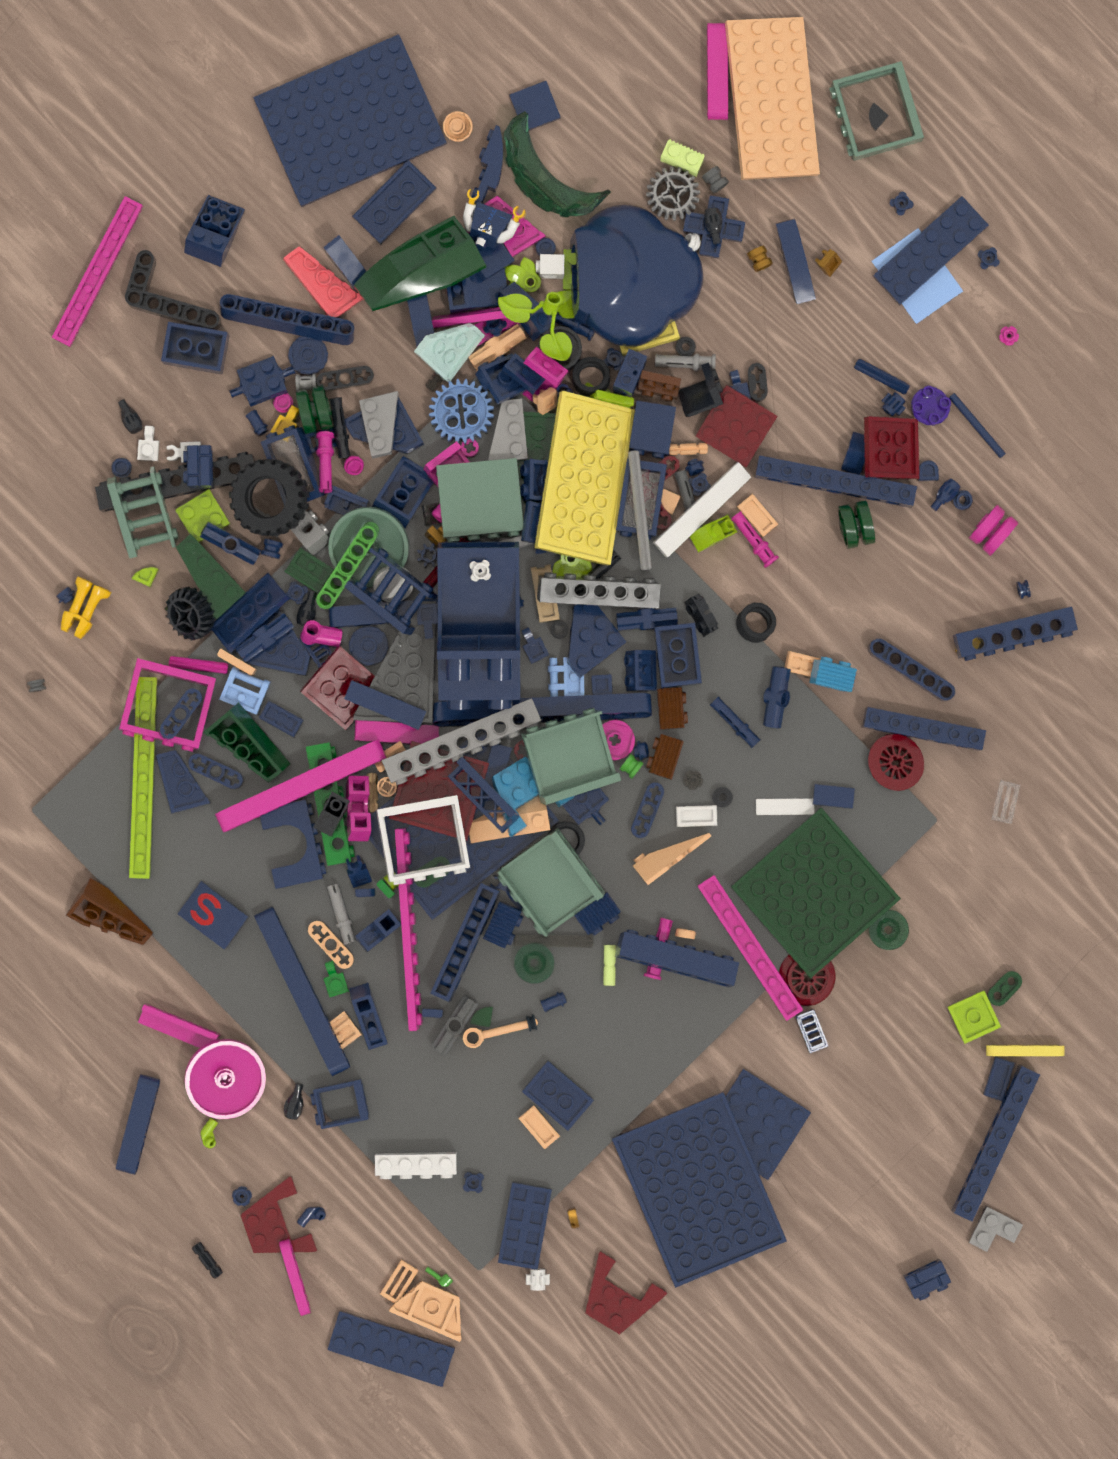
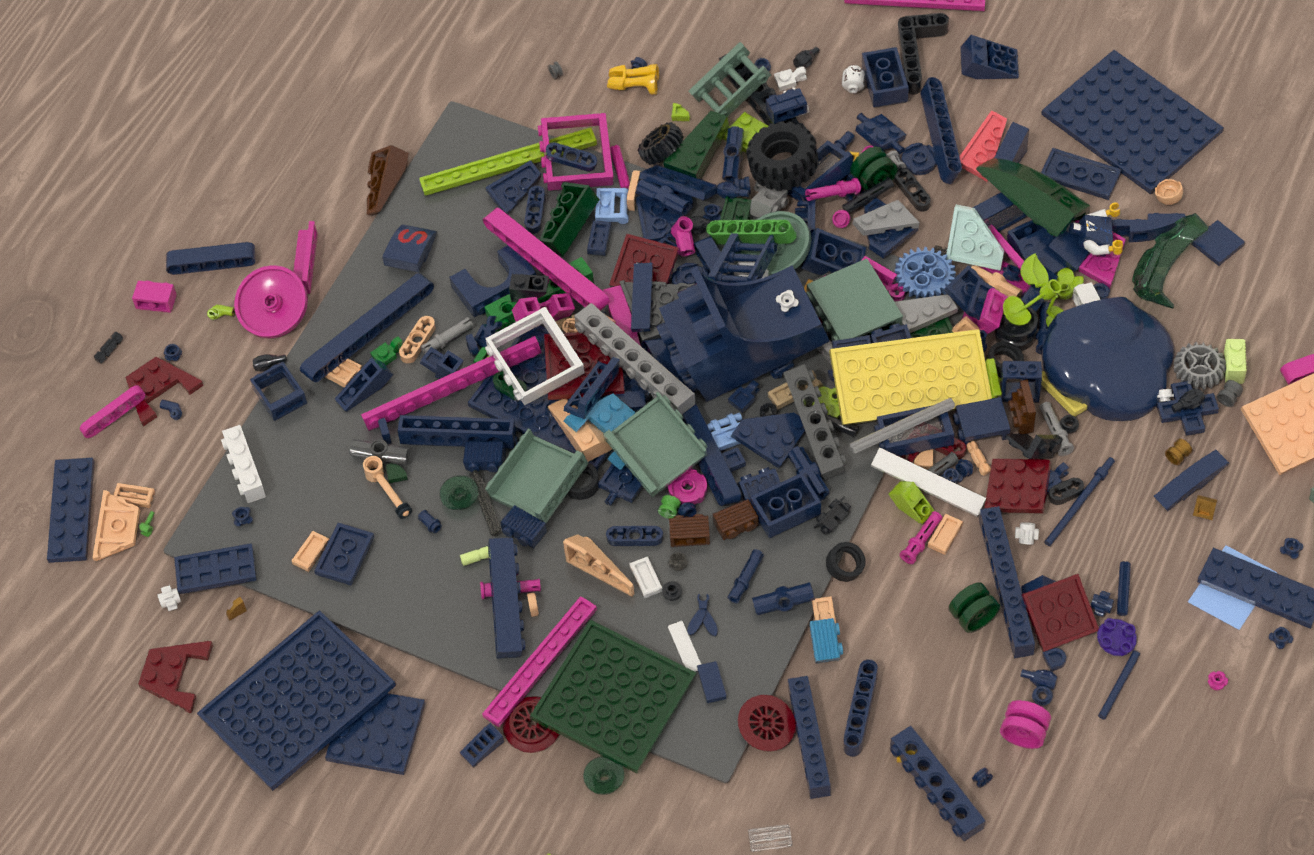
camera: 75 degrees right, 30 degrees down
(163, 1196) = (154, 296): none -> dark pink brick
(182, 380) = (853, 79): none -> white head
(280, 563) = (732, 190): none -> dark blue piece
(752, 342) = (1100, 474): none -> dark blue bar
(760, 778) = (704, 616): none -> dark blue piece
(792, 440) = (1026, 533): none -> white gear

